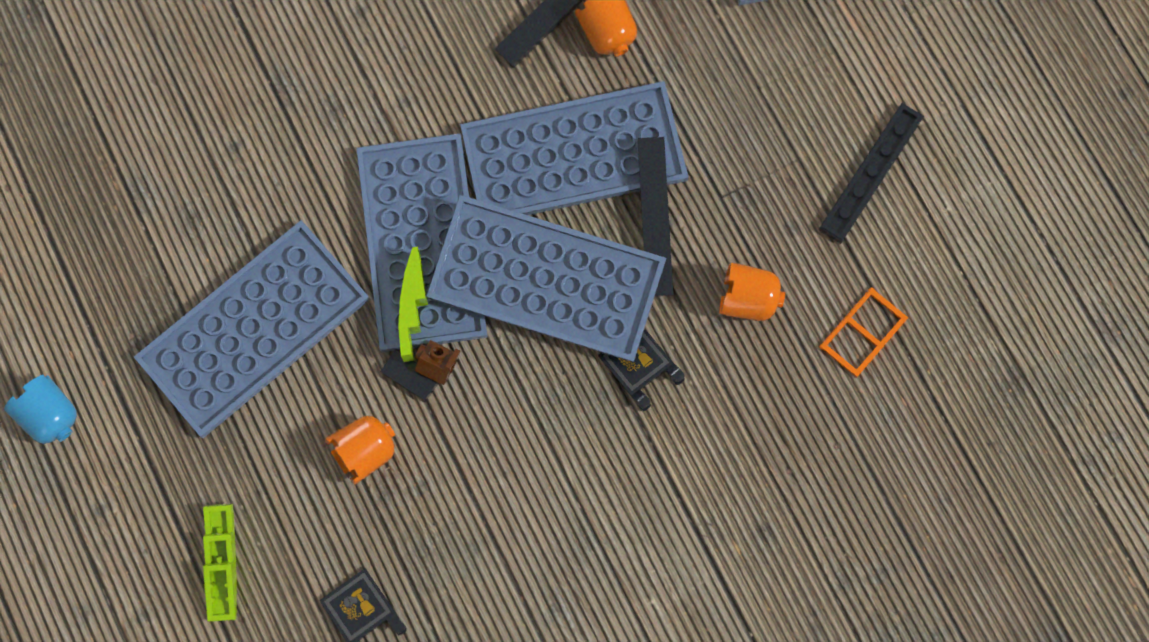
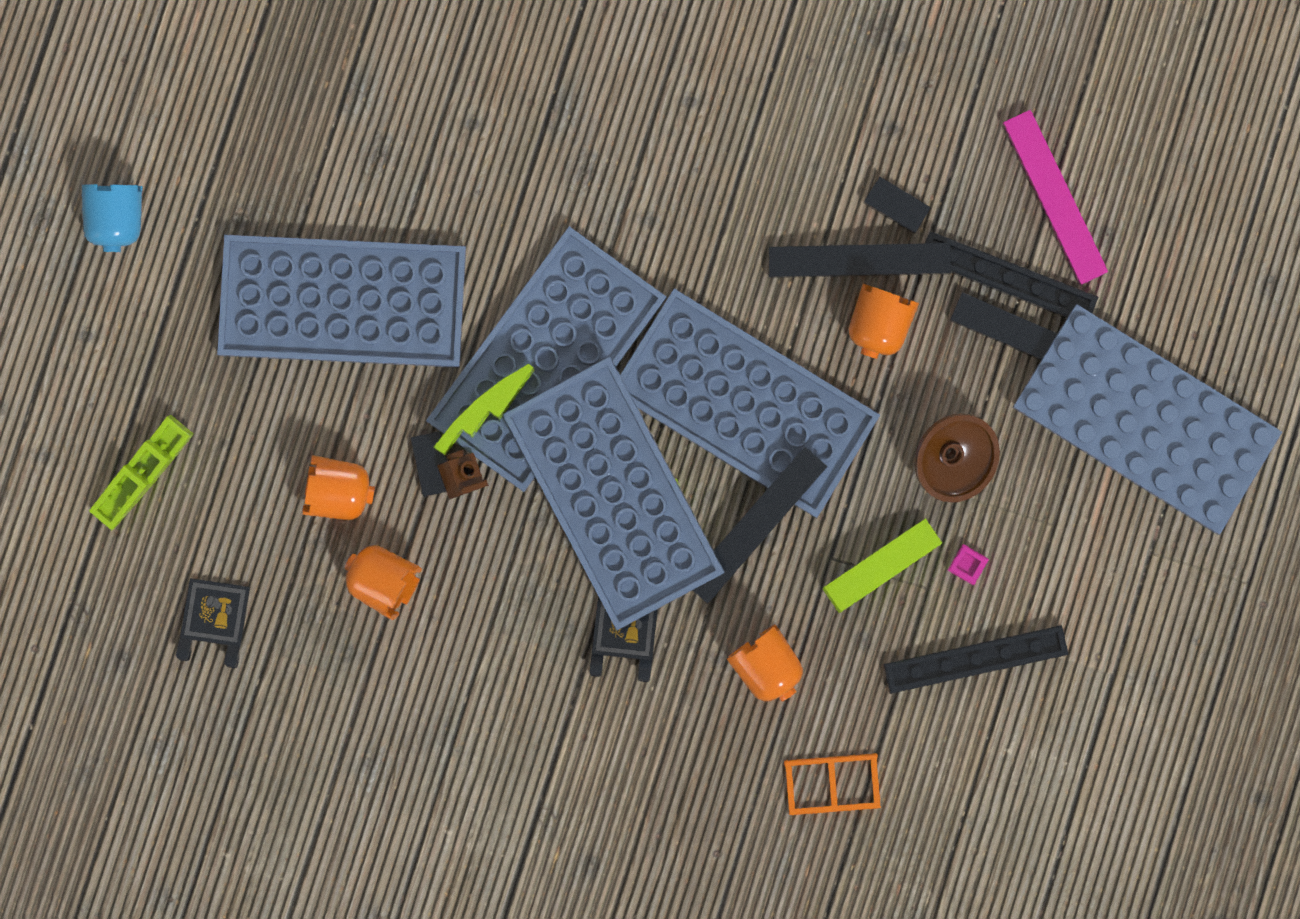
camera: 40 degrees right, 10 degrees up
(448, 476) = (381, 579): none -> orange cylinder
(737, 60) = (969, 464): none -> reddish brown dish
(757, 169) = (882, 565): none -> lime slope
(808, 121) = (968, 564): none -> dark pink tile

